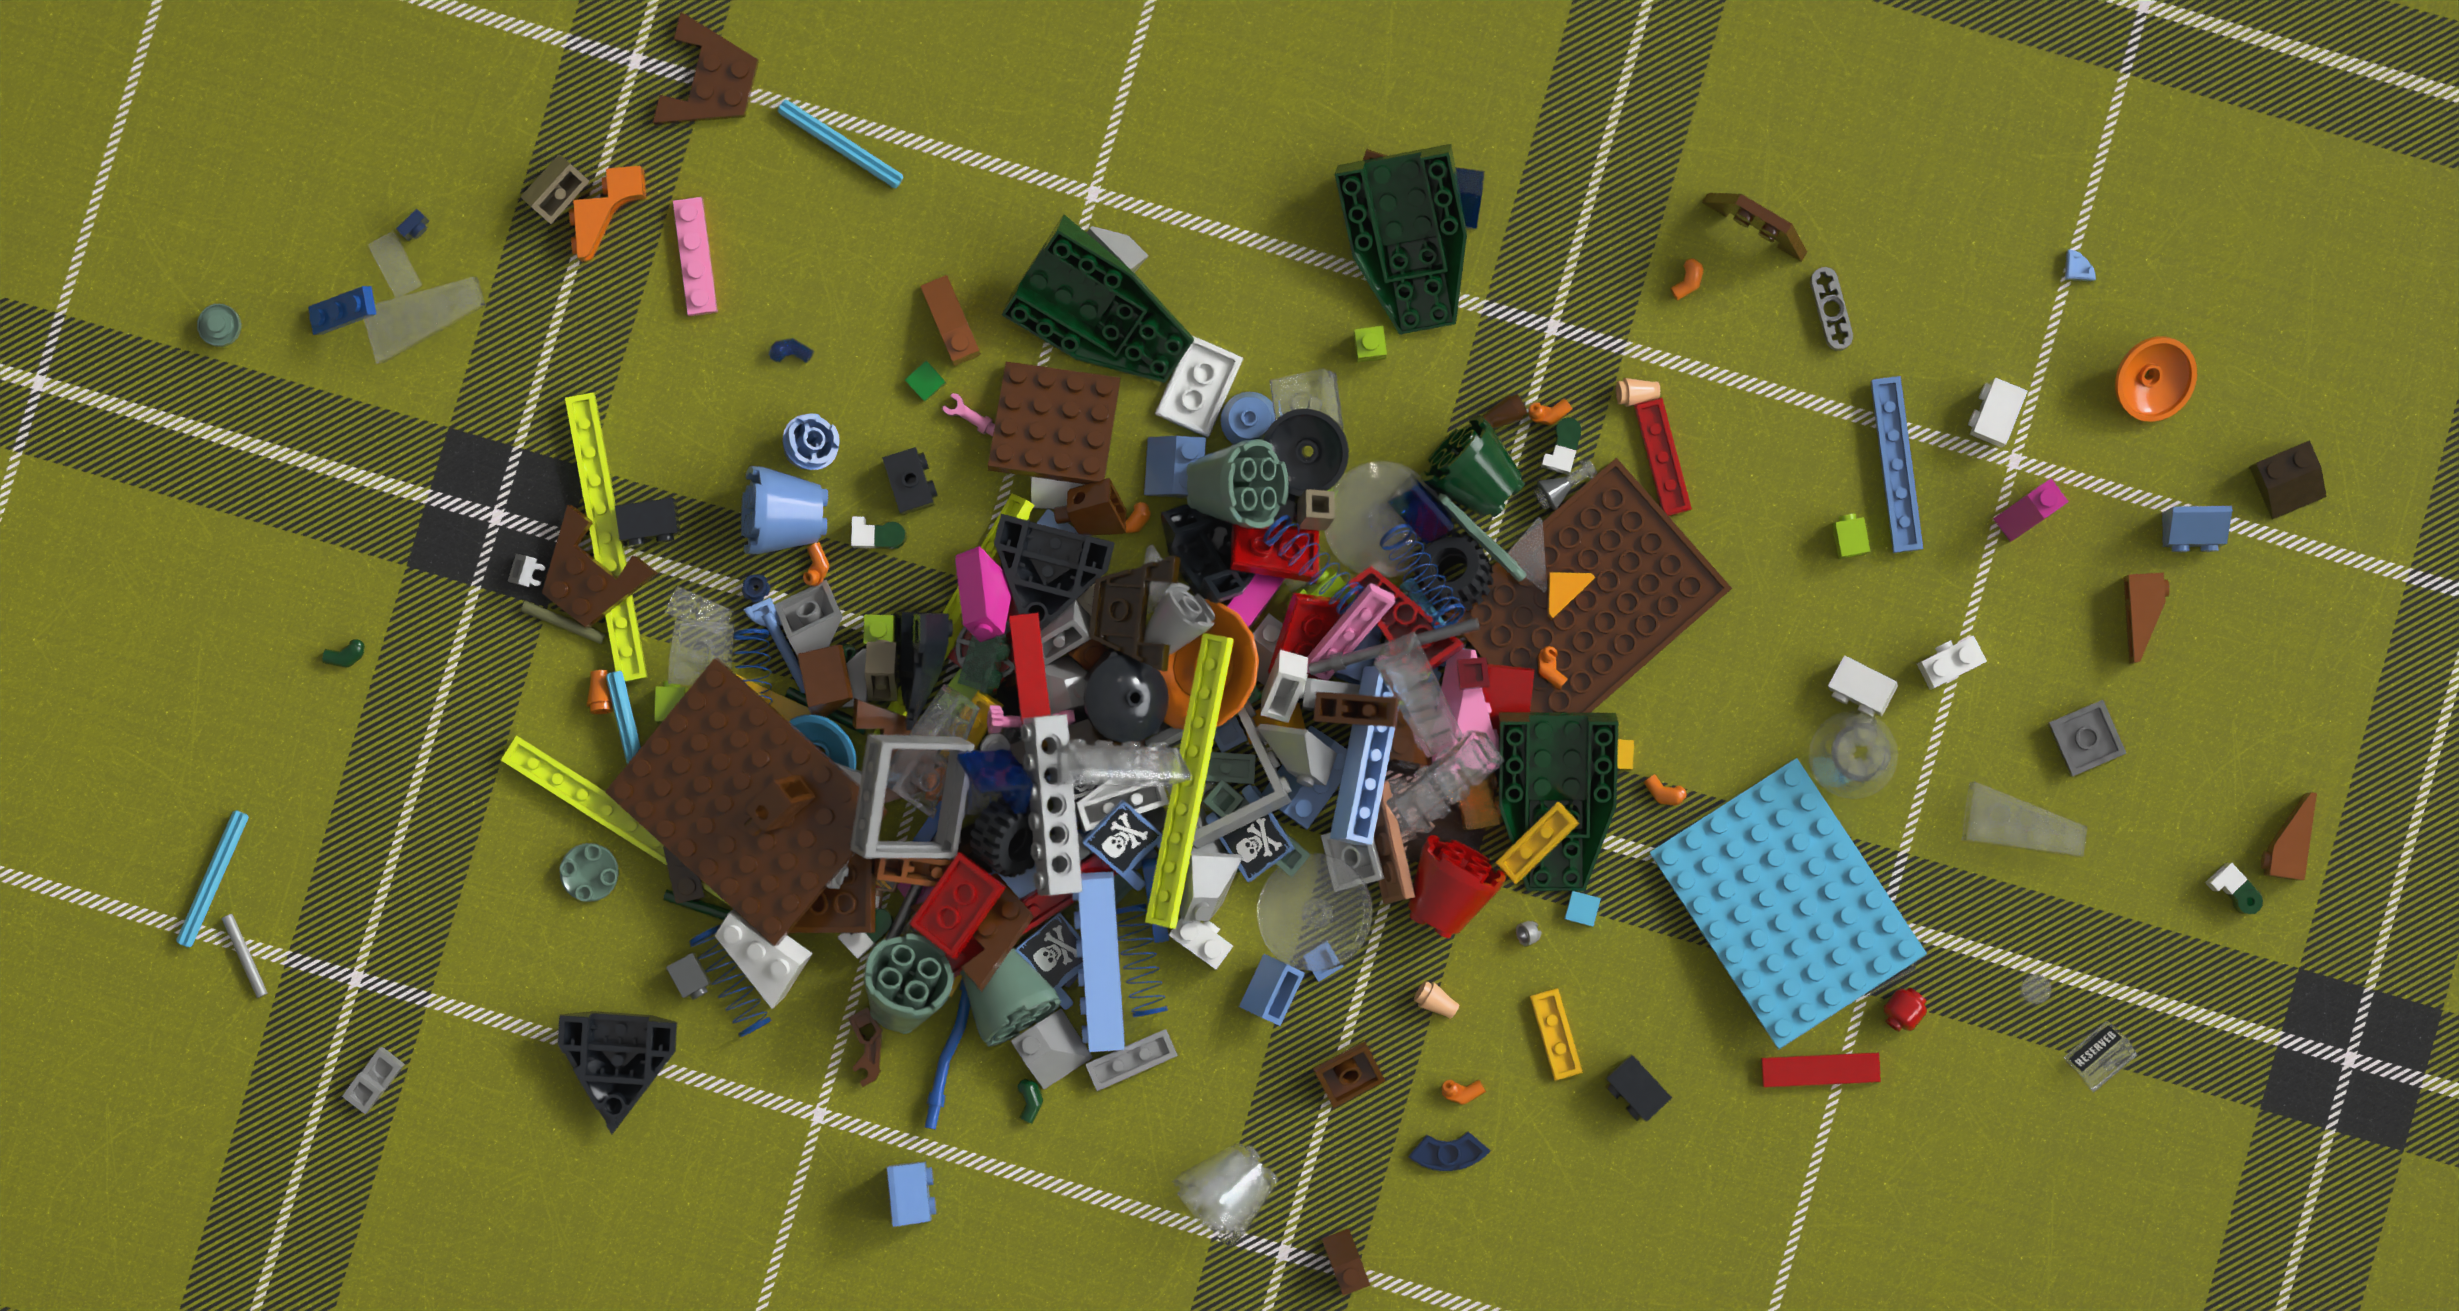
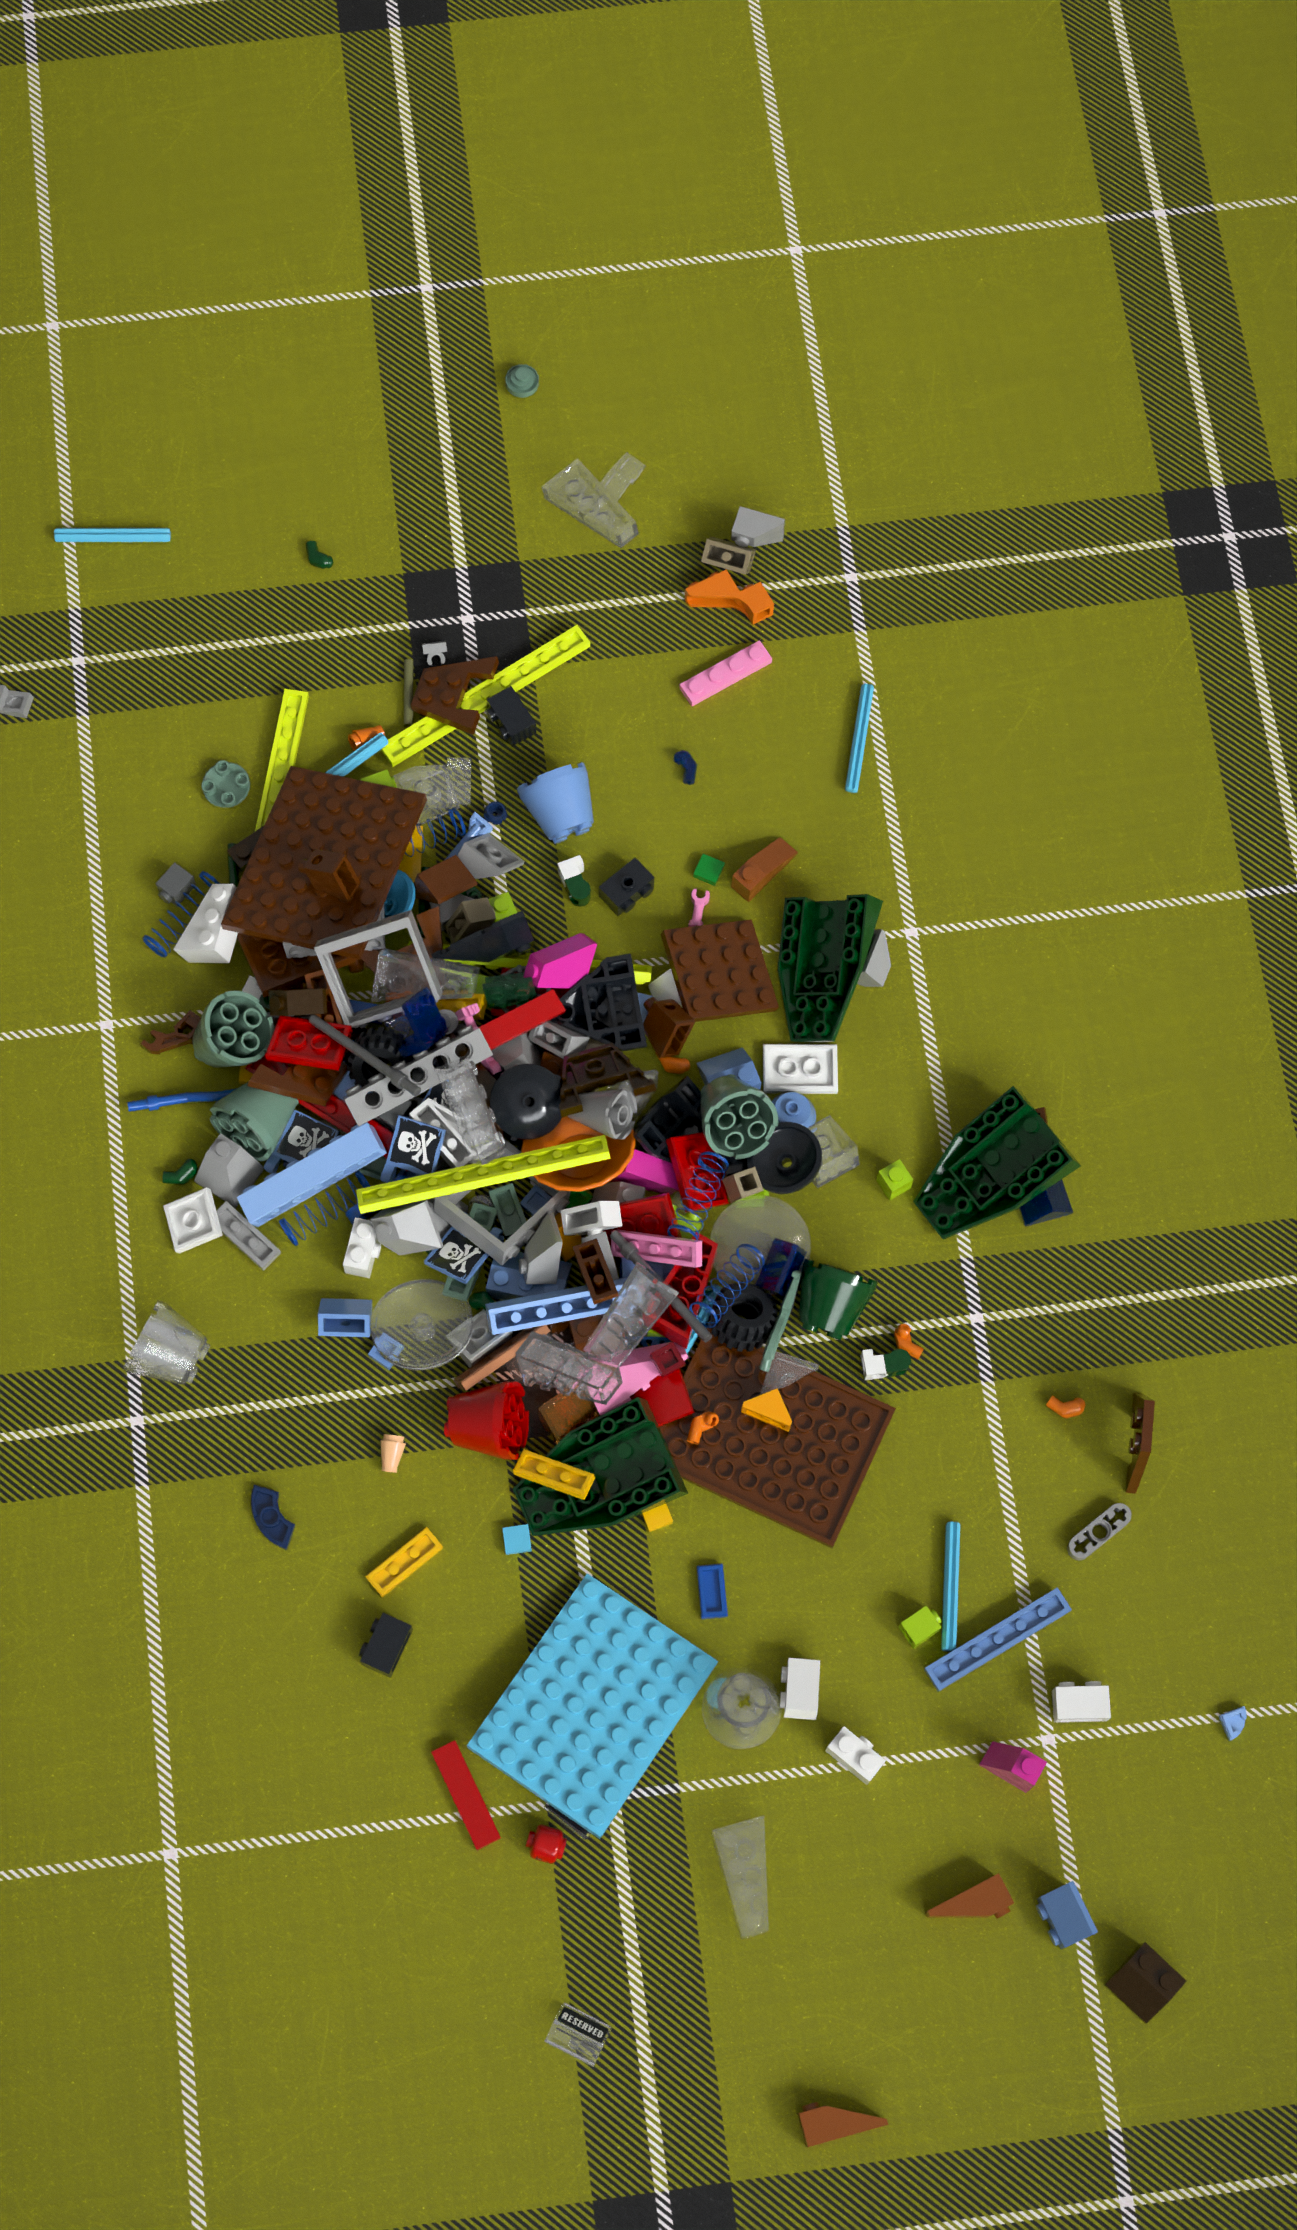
camera: 60 degrees right, 15 degrees down
(244, 955) = (63, 578): light grey bar -> none
(342, 310) = (570, 449): blue plate -> none
(413, 226) = (656, 475): dark blue plate -> none
(539, 146) = (756, 528): none -> light grey slope
(616, 1056) = (89, 854): black wedge -> none
(720, 80) = (863, 638): reddish brown wing -> none
(810, 442) = (623, 802): medium blue cone -> none
(819, 566) = (531, 852): orange arm -> none
(904, 898) = (297, 1001): none -> dark brown slope
(910, 1193) = (68, 1109): medium blue slope -> none
(1055, 828) = (397, 1078): none -> flat silver bar
(1091, 1108) = (193, 1220): none -> white tile
(1313, 838) = (479, 1299): none -> dark green arm
(1346, 1262) = (146, 1470): reddish brown slope -> none
(1349, 1074) = (302, 1407): reddish brown slope -> none
(1461, 1094) = (322, 1505): orange arm -> none
(1506, 411) = (892, 1308): reddish brown cone -> none
(1528, 933) = (477, 1503): light grey hinge -> none
(1553, 491) = (844, 1371): piece -> none
(1636, 391) = (956, 1402): light nougat cone -> none
(1662, 457) = (913, 1447): red tile -> none
(1665, 795) = (639, 1565): orange arm -> none
(1721, 732) = (712, 1591): none -> blue tile
(1821, 486) = (950, 1590): none -> medium azure axle
(2035, 989) = (612, 1951): clear tile -> none
(2086, 738) = (844, 1901): flat silver plate -> none
(2167, 384) = (1169, 1840): orange dish -> none
(2244, 895) = (770, 2103): leg -> none

